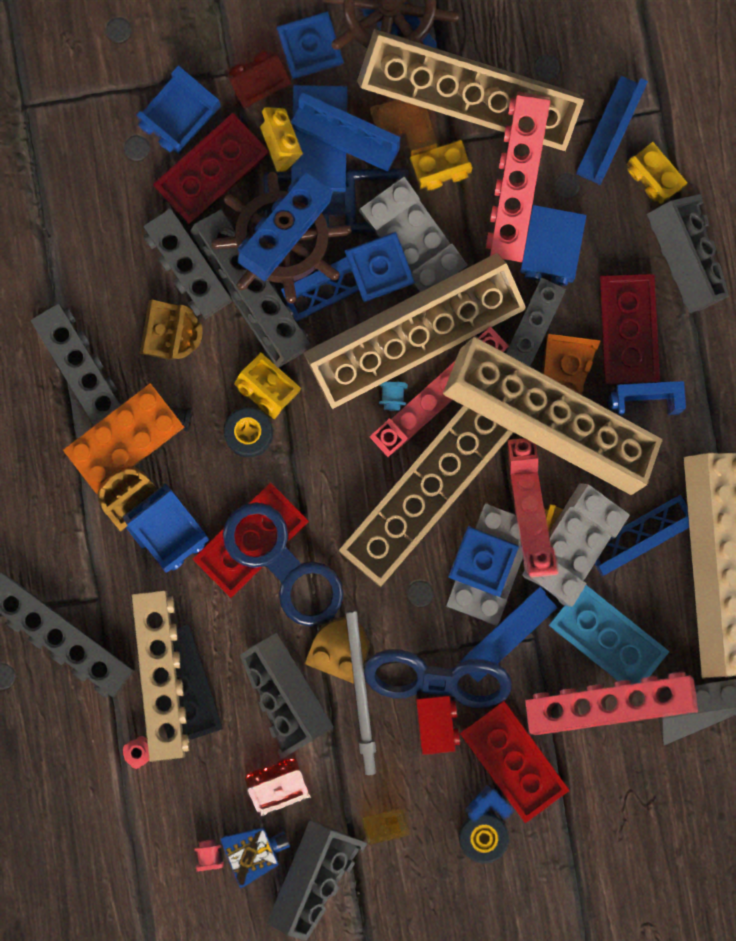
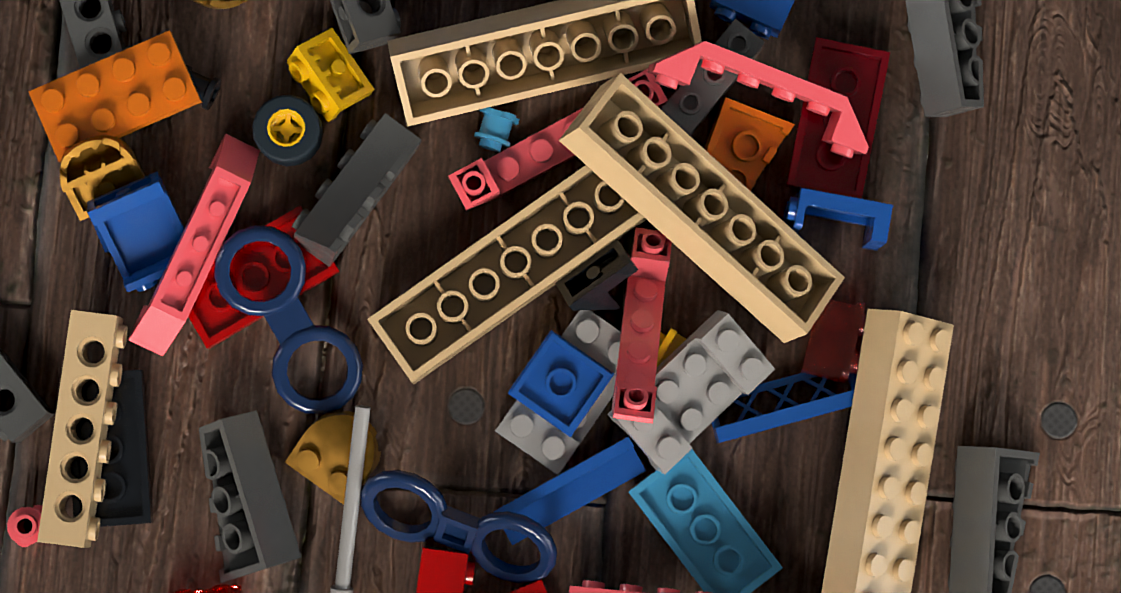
camera: 10 degrees right, 0 degrees up
(208, 529) = (197, 246): none -> coral slope
(308, 461) = (356, 190): none -> dark grey wedge
(488, 484) = (591, 282): none -> black slope
(634, 336) = (842, 129): none -> coral slope
(665, 485) = (834, 340): none -> clear red bracket

